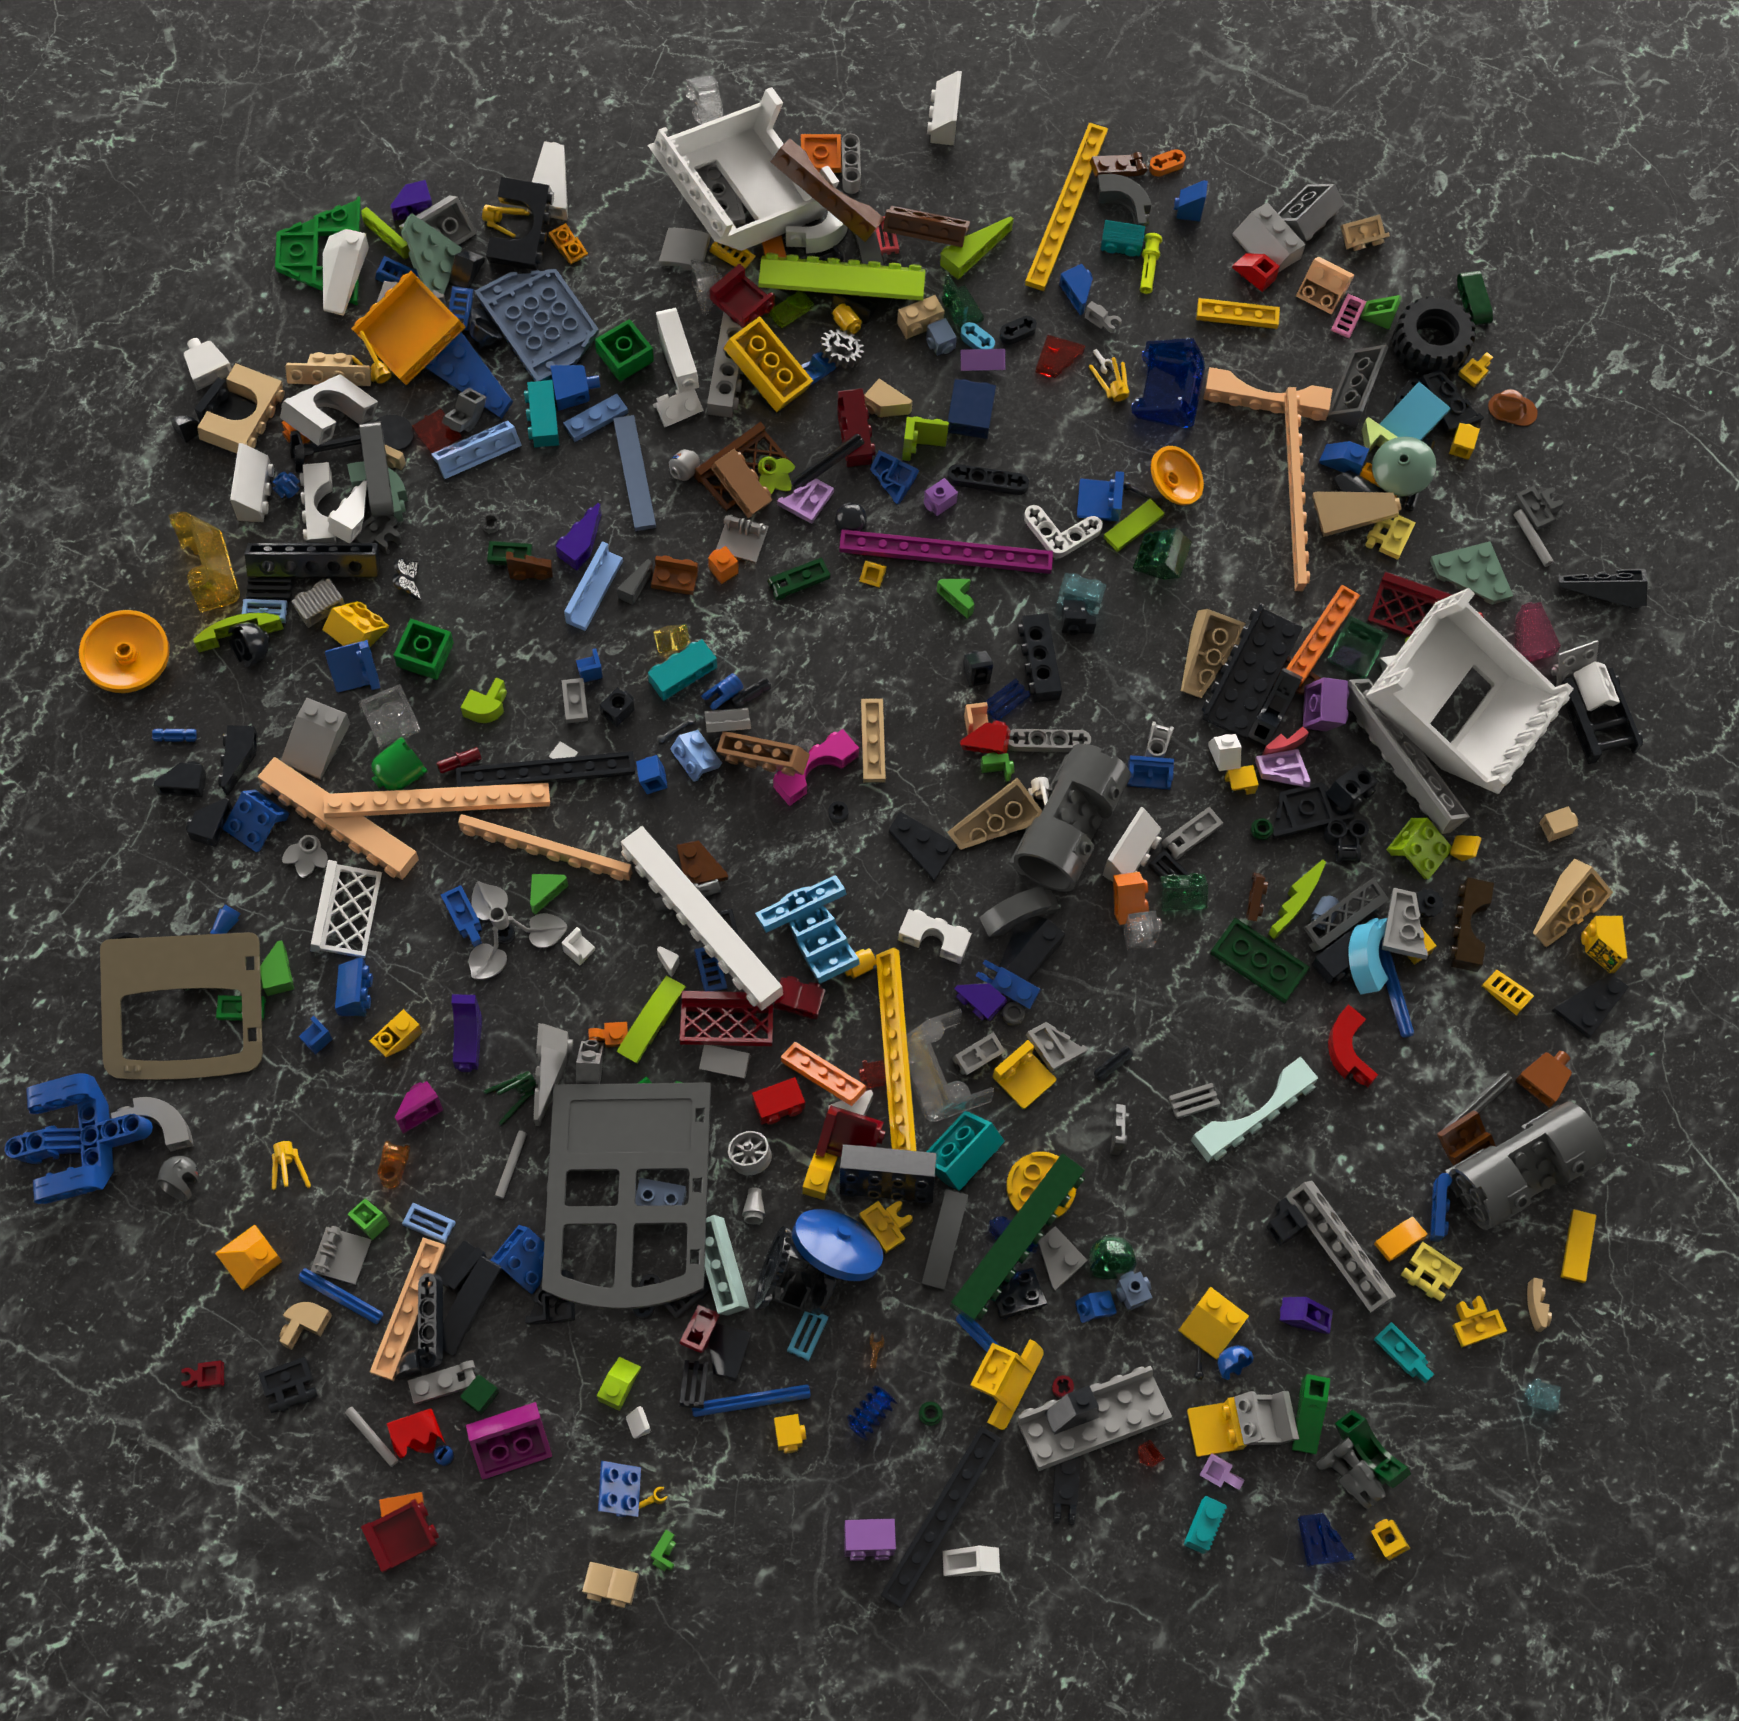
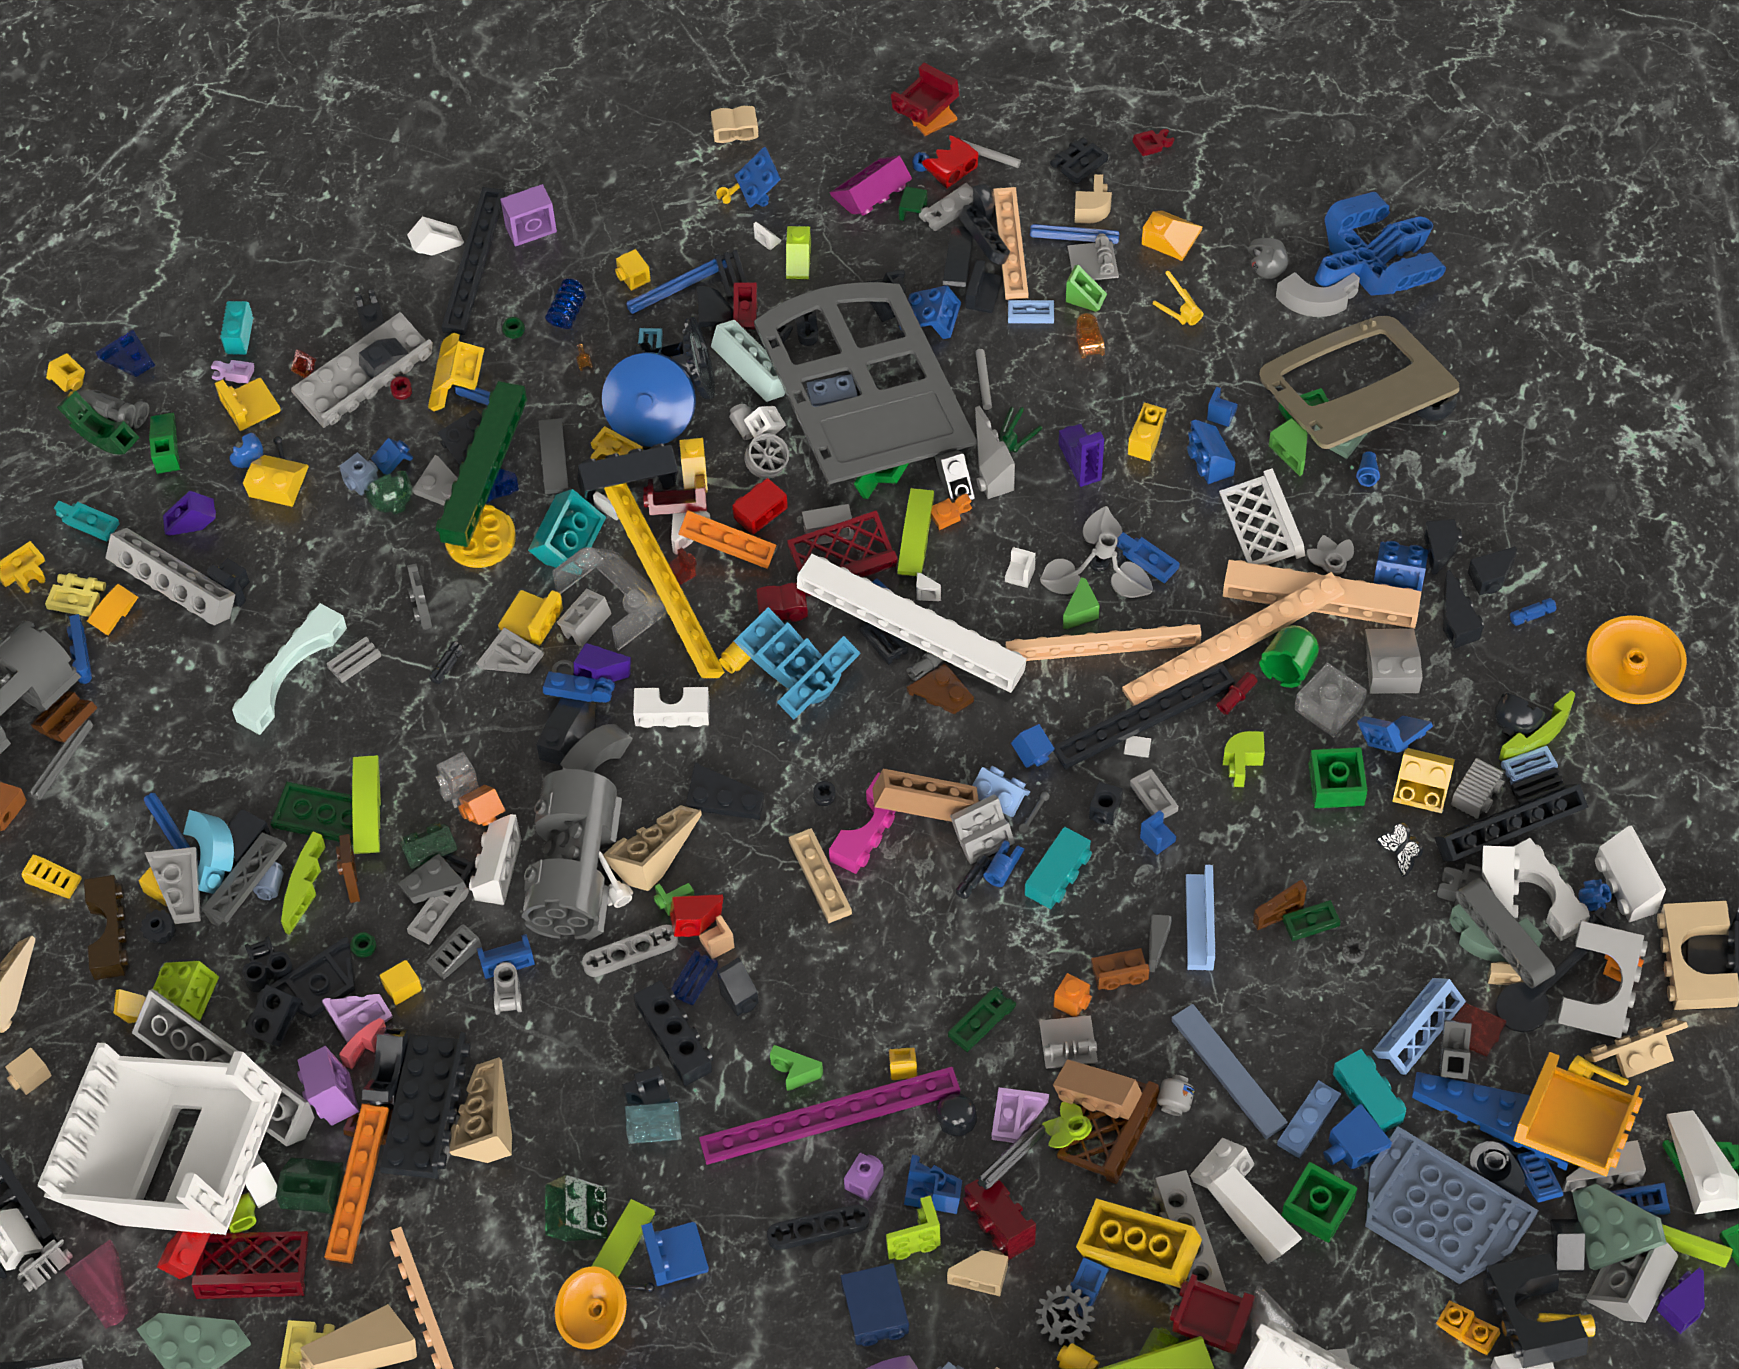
camera: 165 degrees right, 10 degrees down
(214, 581) = (1617, 780): clear yellow windscreen -> none
(417, 1106) = (1090, 382): magenta slope -> none
(579, 542) = (1241, 960): dark purple slope -> none
(663, 1547) = (701, 157): bright green bracket -> none
(672, 638) = (1086, 898): clear yellow panel -> none
(736, 1188) = (764, 420): none -> white brick
(1061, 539) = (700, 1189): white beam -> none
(1178, 805) = (467, 951): none -> dark grey slope
(1190, 853) = (430, 880): none -> dark grey wing
(1226, 752) = (429, 1000): white slope -> none
(1226, 940) = (366, 804): none -> lime slope
(1266, 1418) = (205, 414): light grey panel -> none
(1342, 1050) = (218, 771): red arch -> none

